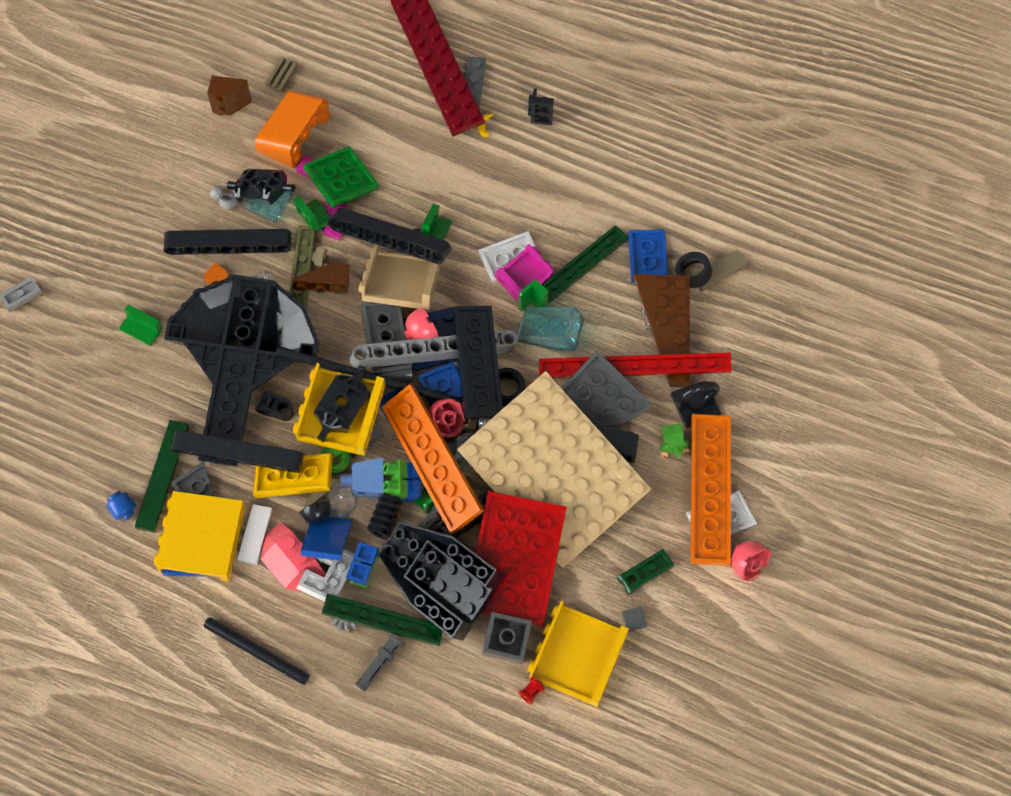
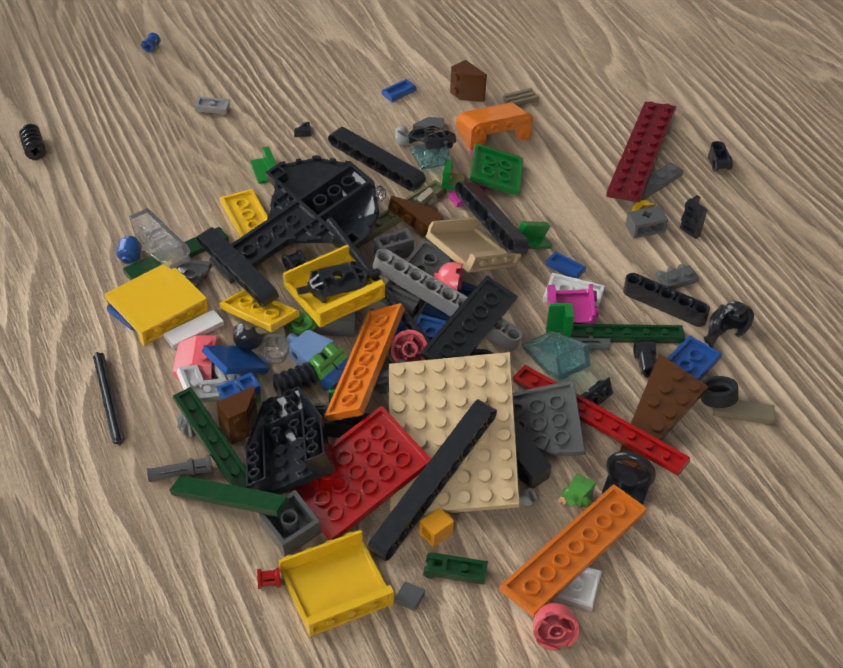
camera: 40 degrees right, 20 degrees down
(130, 257) = (303, 130): none -> black tile
(147, 479) = (158, 239): none -> clear wedge
(168, 146) = (398, 90): none -> blue tile
(177, 388) = (244, 211): none -> yellow tile
(234, 165) = (437, 122): none -> dark grey tile
(336, 325) = (398, 242): none -> dark grey brick
(380, 585) = (237, 414): none -> reddish brown slope
(444, 655) = (229, 495): none -> dark green tile
(480, 234) = (565, 265): none -> blue tile
(505, 23) = (719, 156): none -> black piece
(505, 139) = (646, 222): none -> dark grey brick
(571, 178) = (677, 277): none -> dark grey plate
(575, 290) = (595, 343): none -> dark grey pin
(576, 213) = (666, 299): none -> black beam
(577, 519) = (431, 480): none -> black beam
(604, 551) = (436, 527): none -> light orange brick
(609, 335) = (599, 392): none -> black hinge
(613, 274) = (646, 356): none -> black piece
(642, 192) = (732, 316): none -> black hair
(642, 471) = (528, 497): none -> light grey hinge

